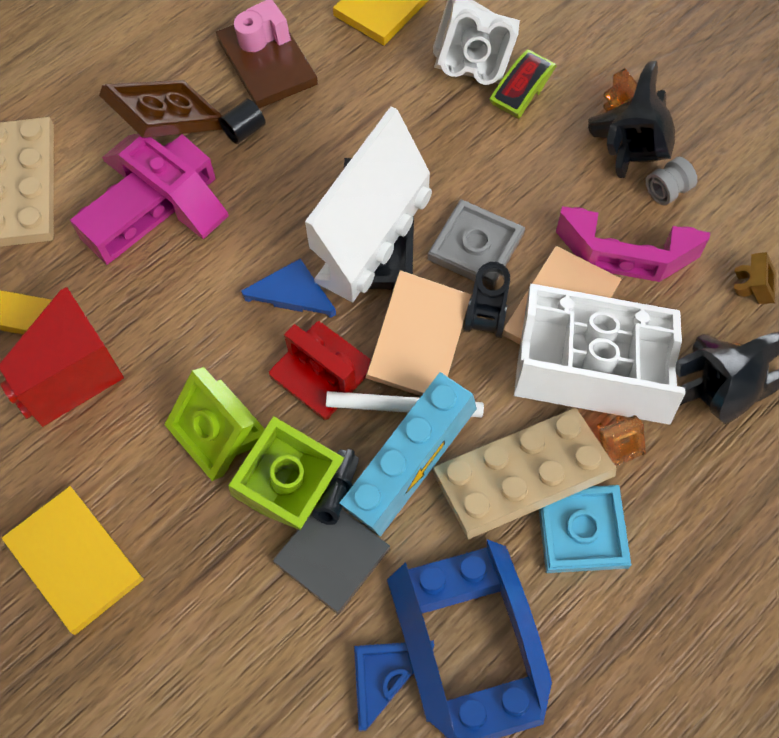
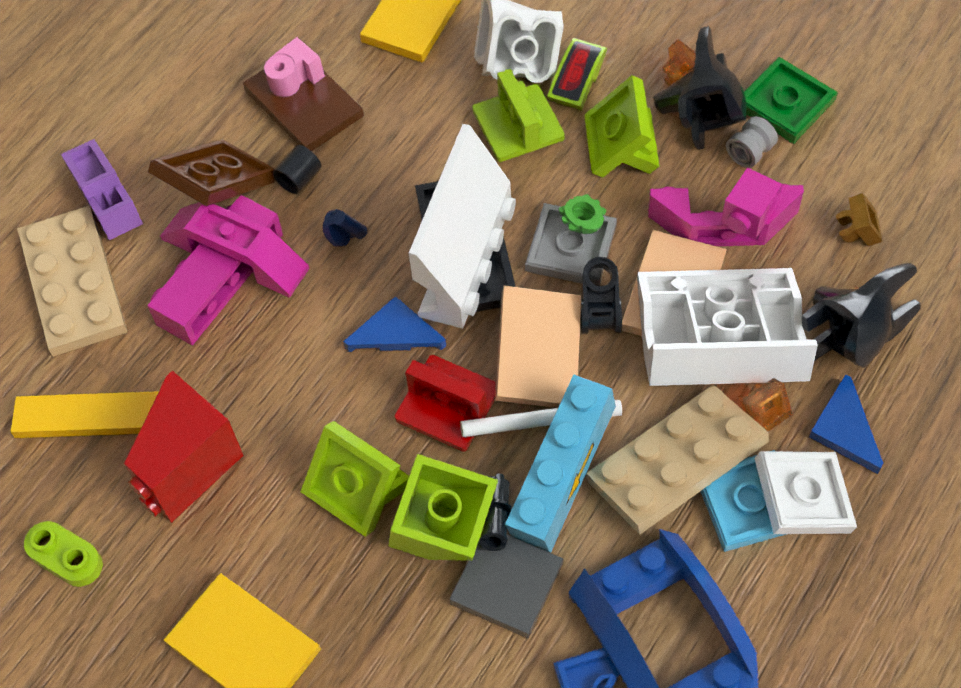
camera: 10 degrees left, 5 degrees down
(64, 104) = (102, 189): none -> medium lavender slope
(267, 184) = (341, 227): none -> dark blue plate
(456, 115) = (517, 119): none -> lime bracket
(492, 217) = (583, 214): none -> bright green animal
(551, 145) = (622, 130): none -> lime bracket
(638, 535) = (805, 493): none -> white tile
(654, 240) = (751, 203): none -> dark pink brick
(694, 478) = (846, 428): none -> blue tile
(716, 147) = (788, 99): none -> green tile

